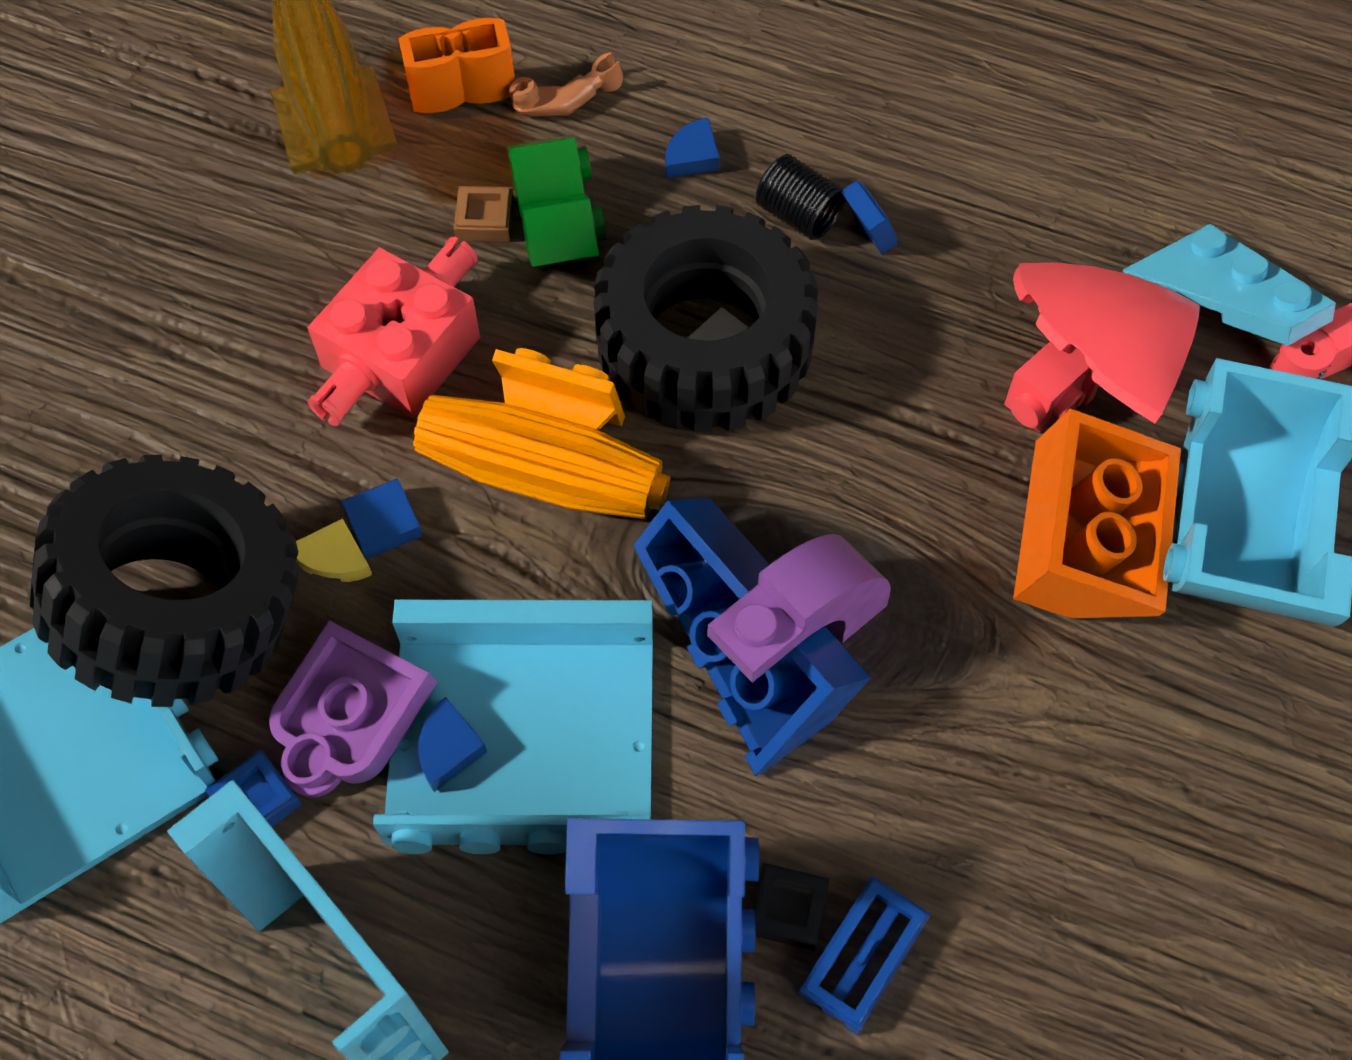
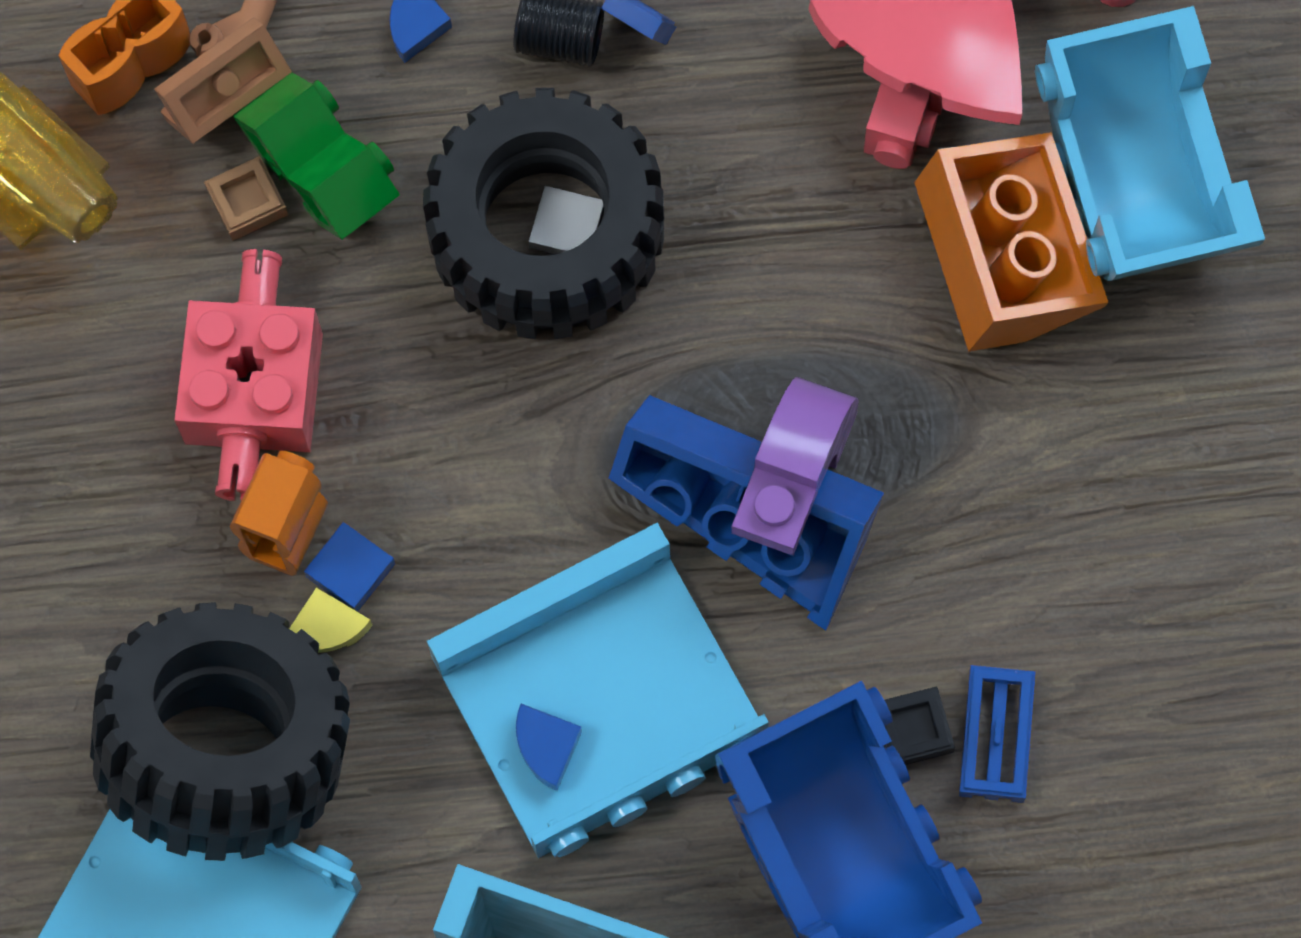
camera: 25 degrees left, 10 degrees up
(262, 787) = (399, 878): blue tile -> none
(344, 436) = (279, 512): none -> orange brick
(345, 711) = (436, 762): medium lavender plate -> none
(513, 113) = (222, 81): none -> nougat panel
(545, 439) = (466, 419): light orange plate -> none

